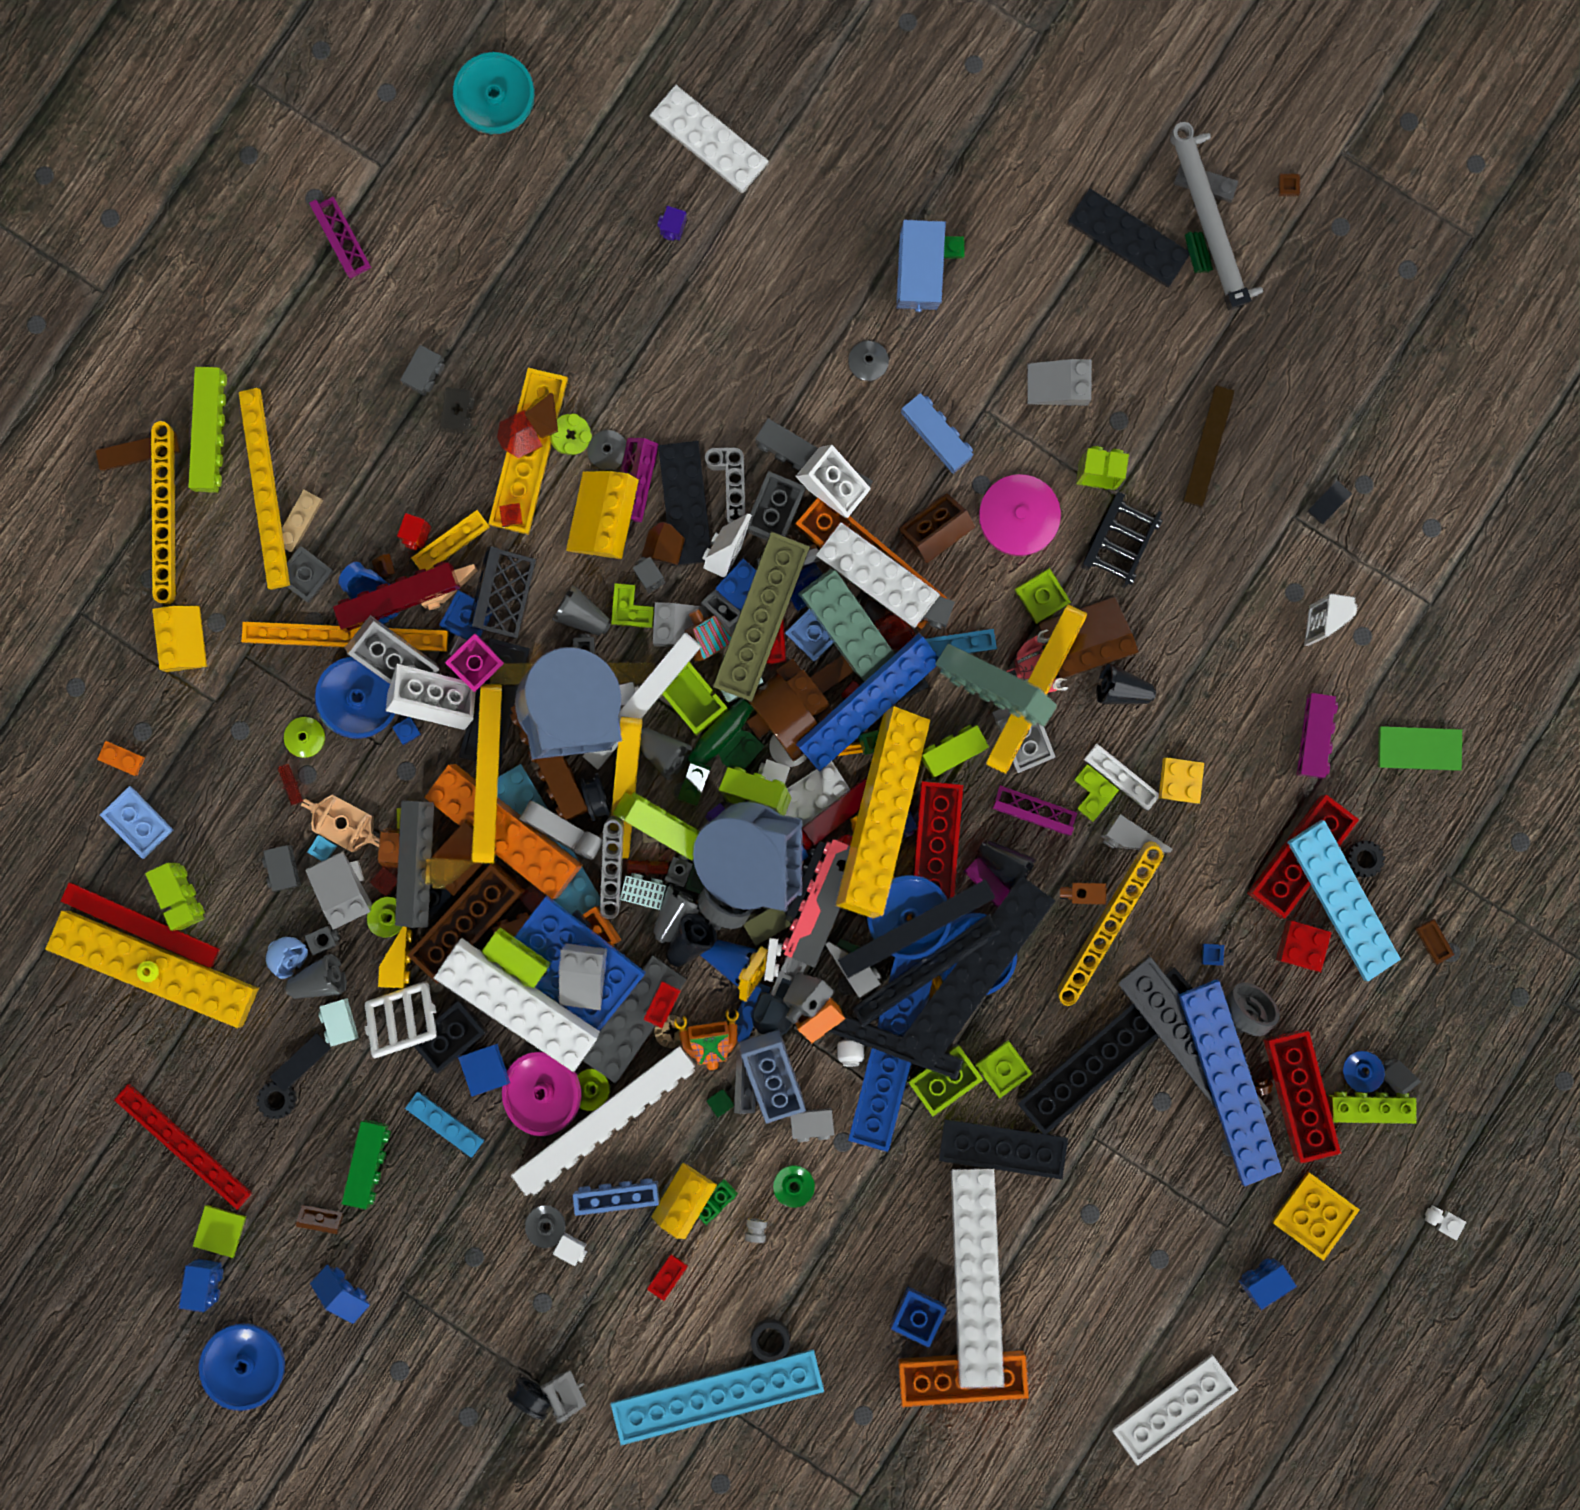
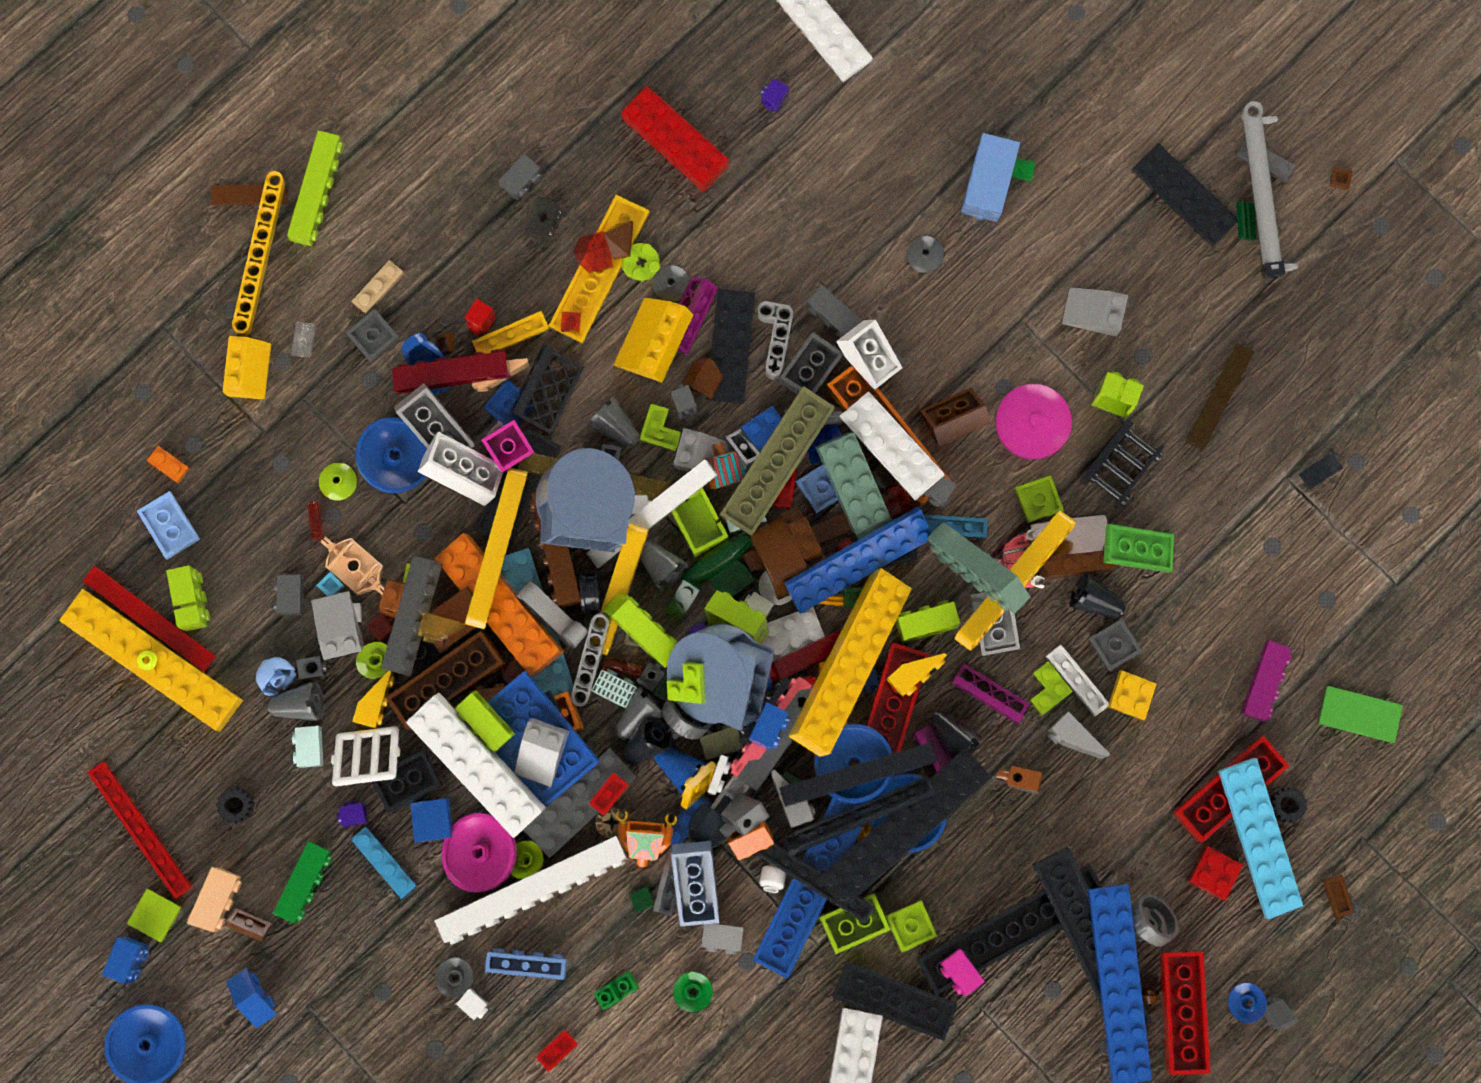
camera: 15 degrees right, 5 degrees down
(232, 595) = (303, 339): none -> clear hips
(264, 488) = (354, 251): yellow plate -> none
(278, 1202) = (215, 899): none -> light nougat slope
(300, 1062) = (265, 776): black tile -> none
(332, 237) = (459, 14): magenta fence -> none
(333, 636) = (385, 395): light orange plate -> none
(400, 1082) = (352, 814): none -> dark purple brick
(406, 730) = (432, 495): blue plate -> none
(577, 293) = (675, 138): none -> red brick
(683, 1202) = (587, 983): yellow slope -> none
(723, 878) = (693, 686): none -> lime plate
(726, 546) = (759, 391): white slope -> none
(755, 1230) = (648, 1025): light grey wheel -> none
(814, 899) = (768, 727): none -> blue brick
(937, 433) = (973, 331): medium blue brick -> none
(947, 812) = (910, 674): none -> yellow slope
(1066, 1107) = (961, 972): none -> dark pink brick
(1109, 913) = (1035, 820): yellow beam -> none
(1153, 732) = (1115, 645): none -> dark grey plate
(1157, 625) = (1138, 548): none -> bright green tile
(1212, 954) = (1128, 862): blue plate -> none
(1328, 616) = (1297, 571): white slope -> none
(1372, 1109) = (1248, 1040): lime brick -> none

